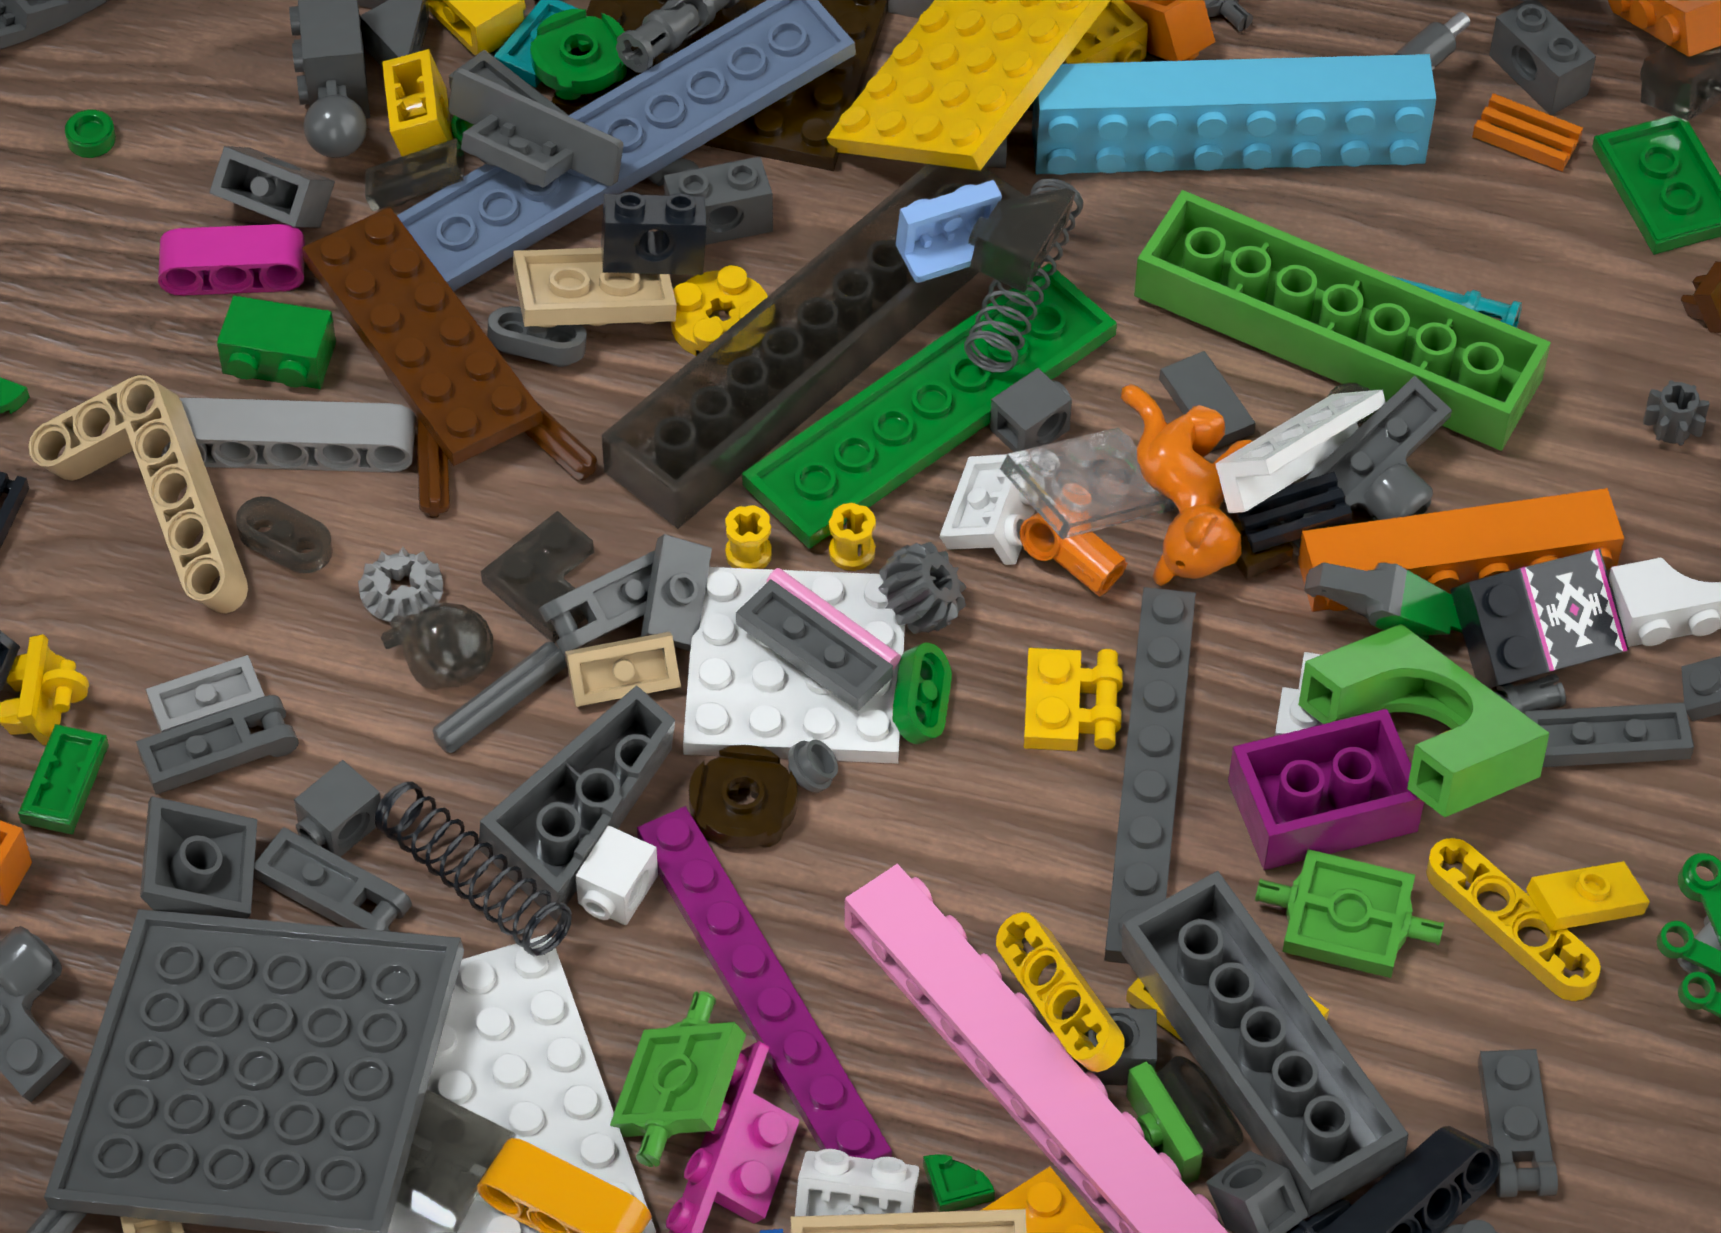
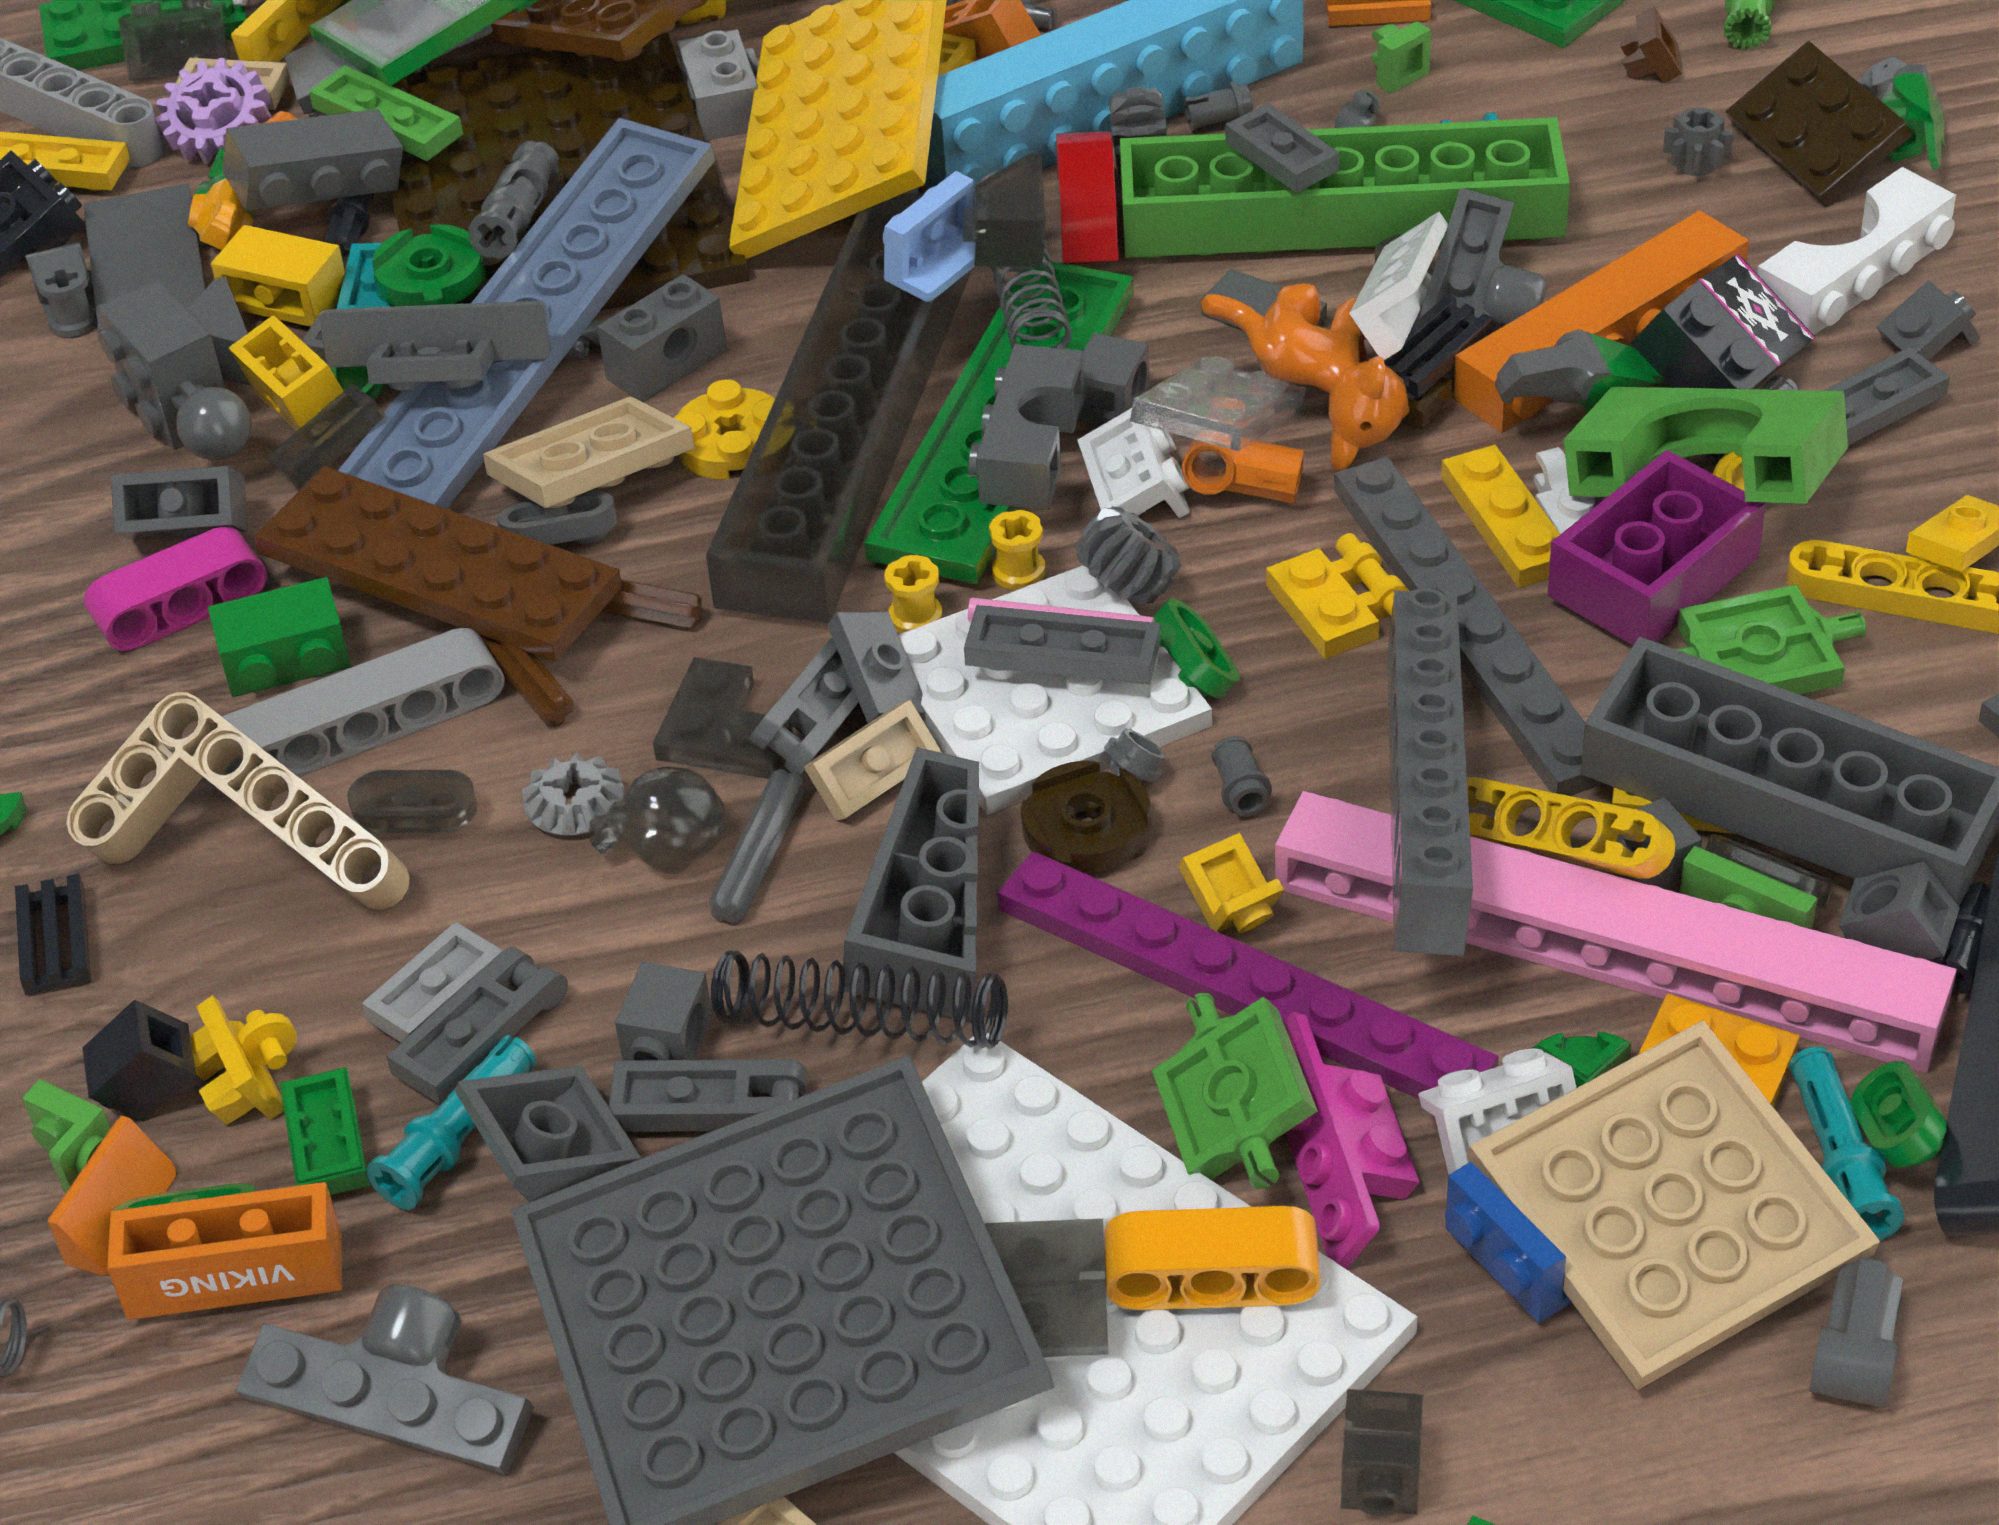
camera: 25 degrees left, 10 degrees down
(127, 822) = (436, 1139): none -> teal pin
(616, 876) = (1014, 939): white brick -> none
(672, 249) = (654, 381): black brick -> none
(801, 910) = (1230, 885): none -> yellow bracket
(874, 833) = (1244, 787): none -> dark grey pin
(947, 405) = (1020, 433): none -> dark grey arch
(986, 897) = (1428, 776): none -> dark grey brick
(1125, 227) = (1087, 197): none -> red arch
(1220, 175) = (1136, 115): none -> dark grey gear
(1252, 684) = (1502, 512): none -> yellow plate
(1293, 268) = (1282, 147): none -> dark grey plate
(1312, 181) = (1217, 106): none -> dark grey pin
(1417, 249) = (1359, 111): none -> dark grey arm
(1497, 202) = (1401, 55): none -> bright green tile

